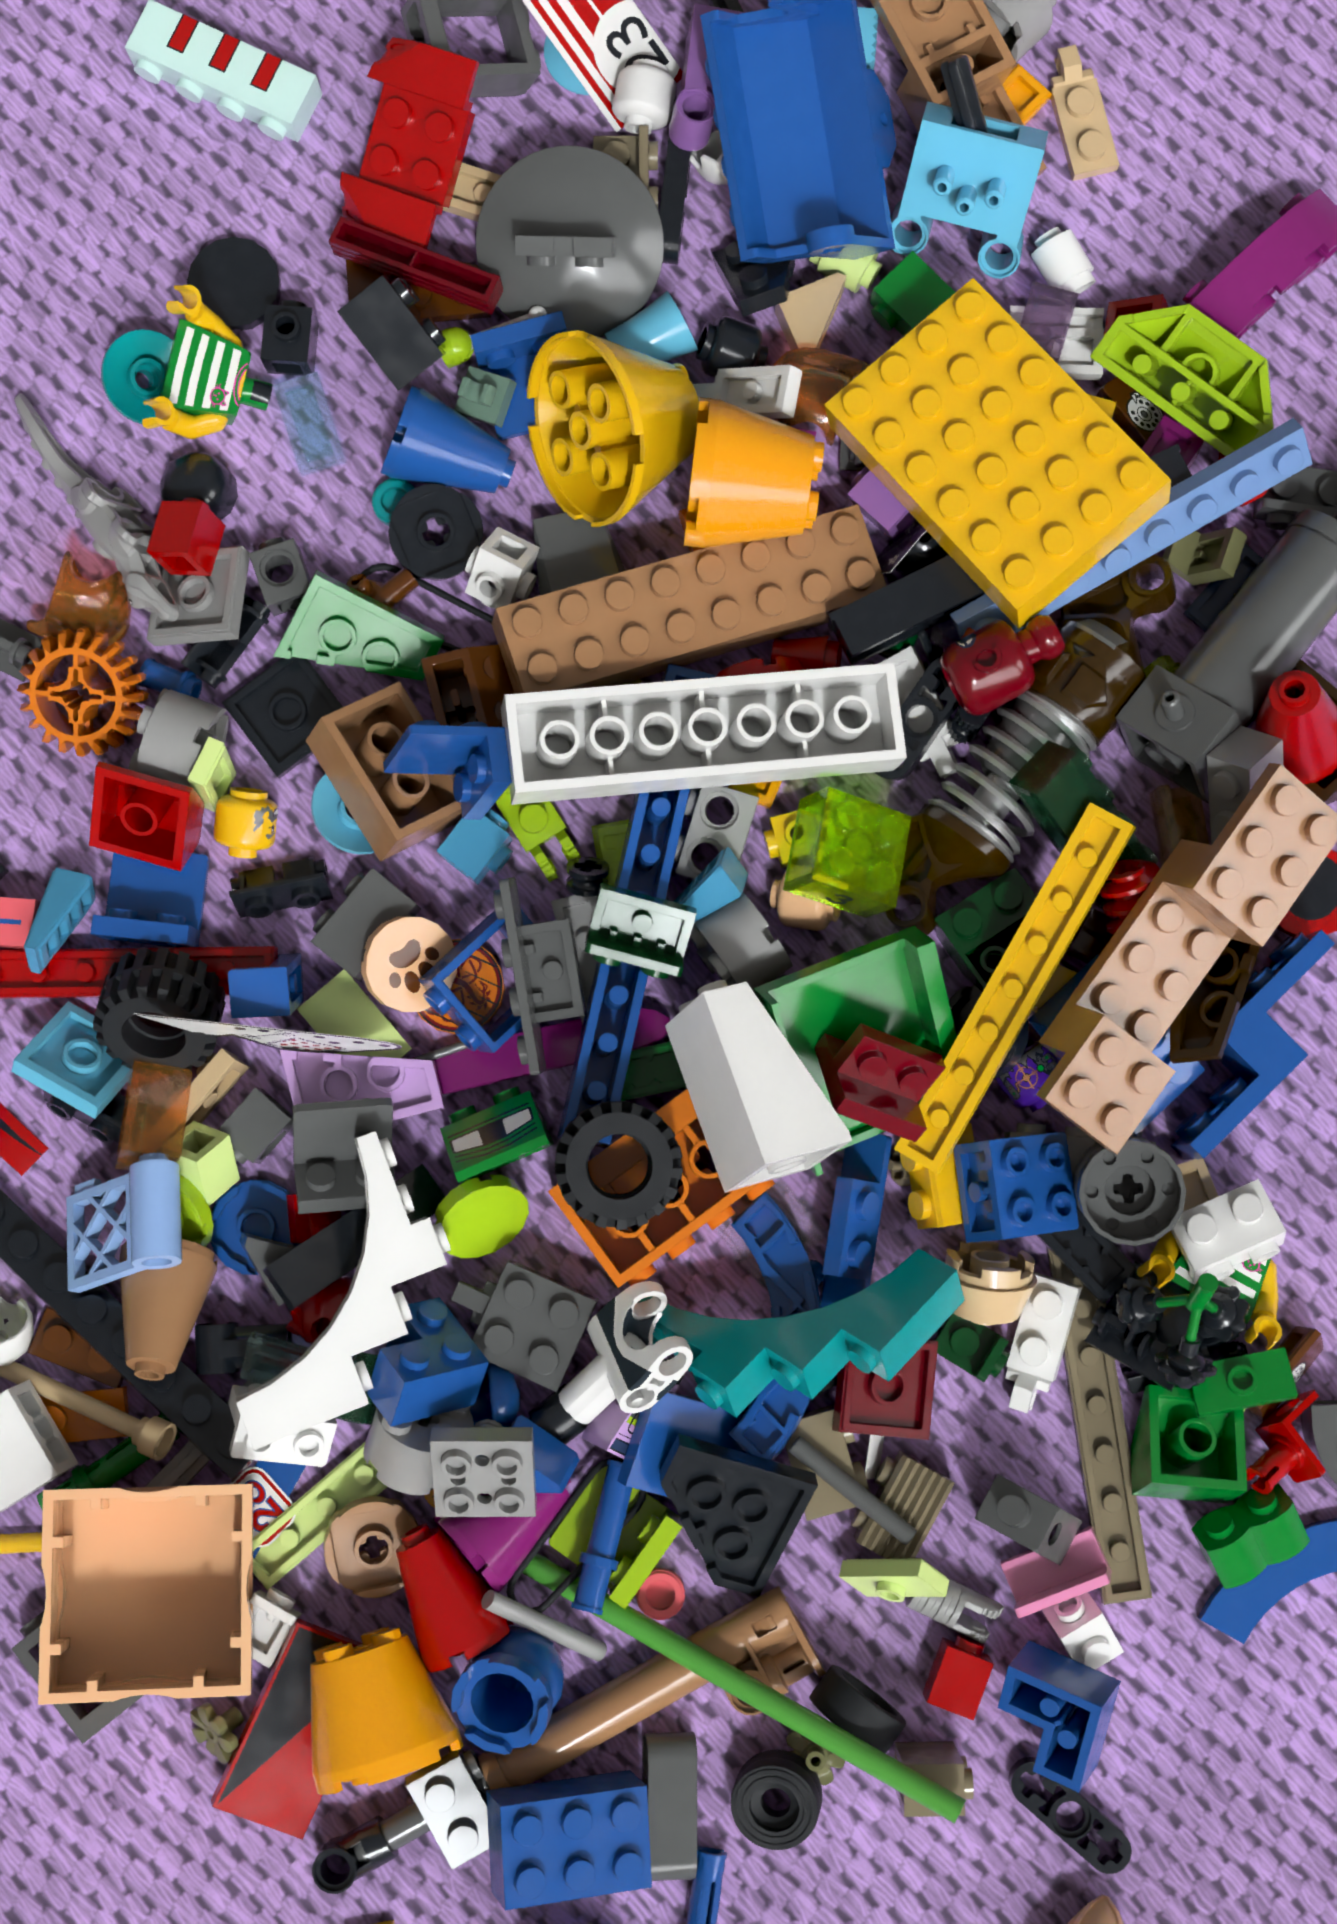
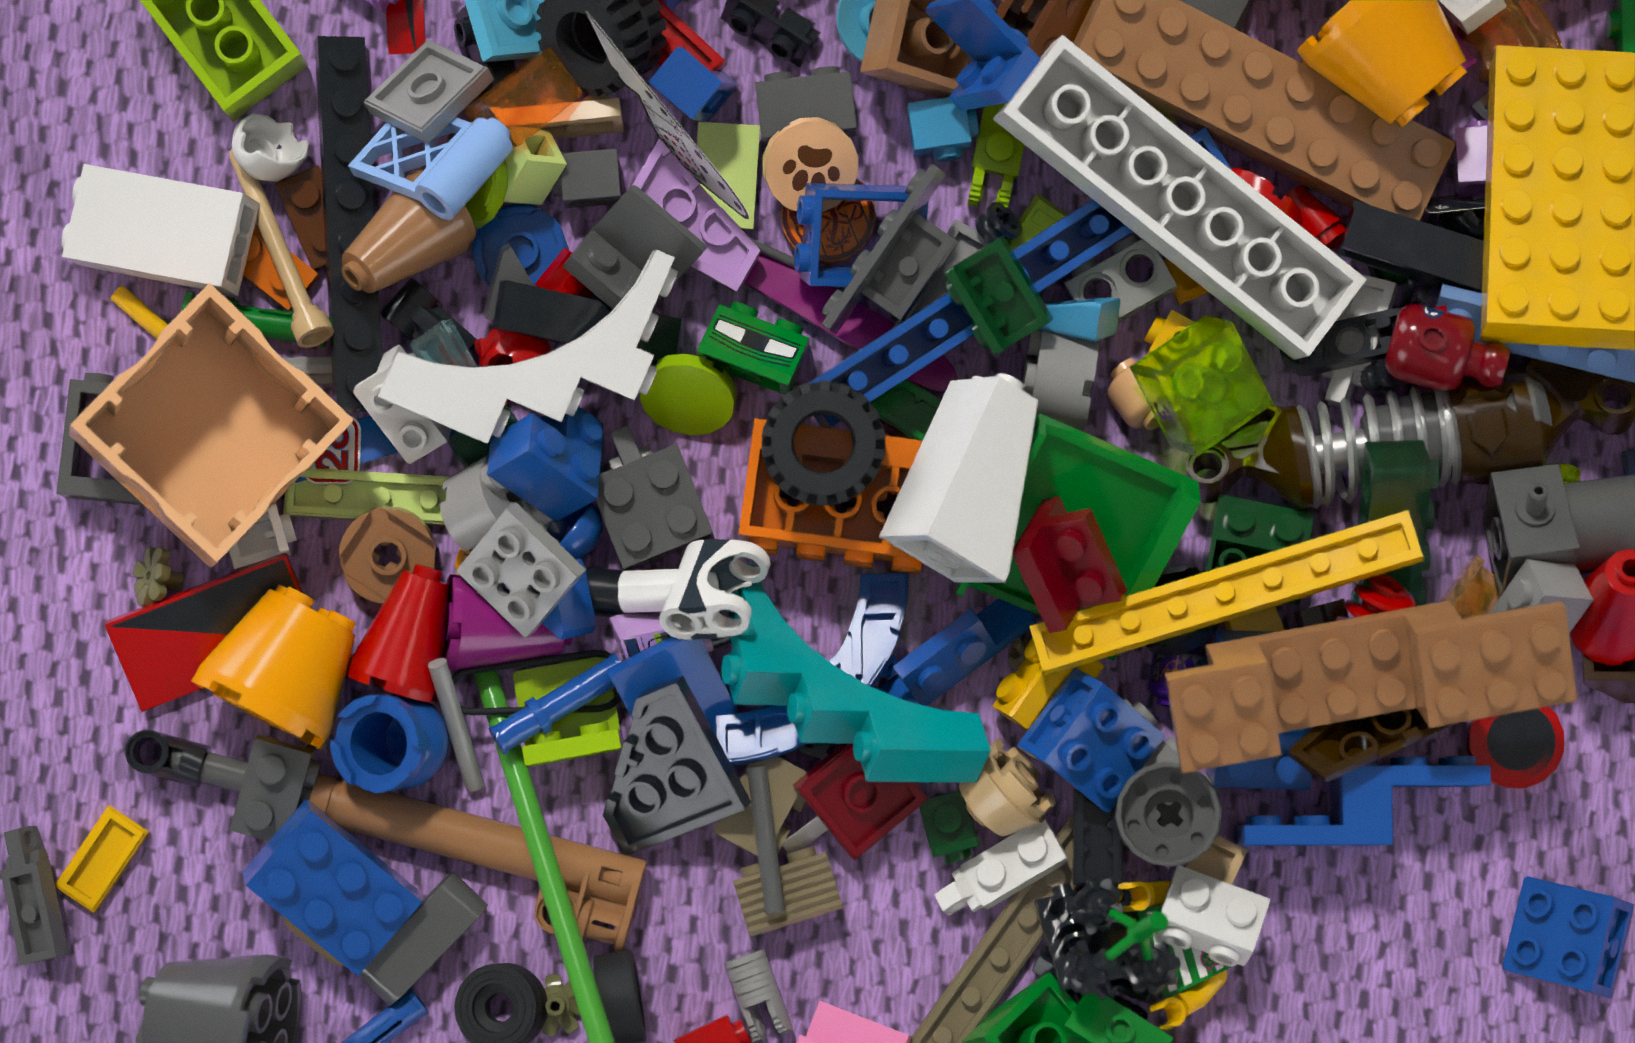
camera: 40 degrees right, 0 degrees up
(75, 1177) = (428, 91): none -> light grey tile
(661, 1594) = (557, 786): coral tile -> none
(894, 1578) = (735, 931): yellowish green plate -> none
(1028, 1519) = (868, 977): dark grey torso -> none

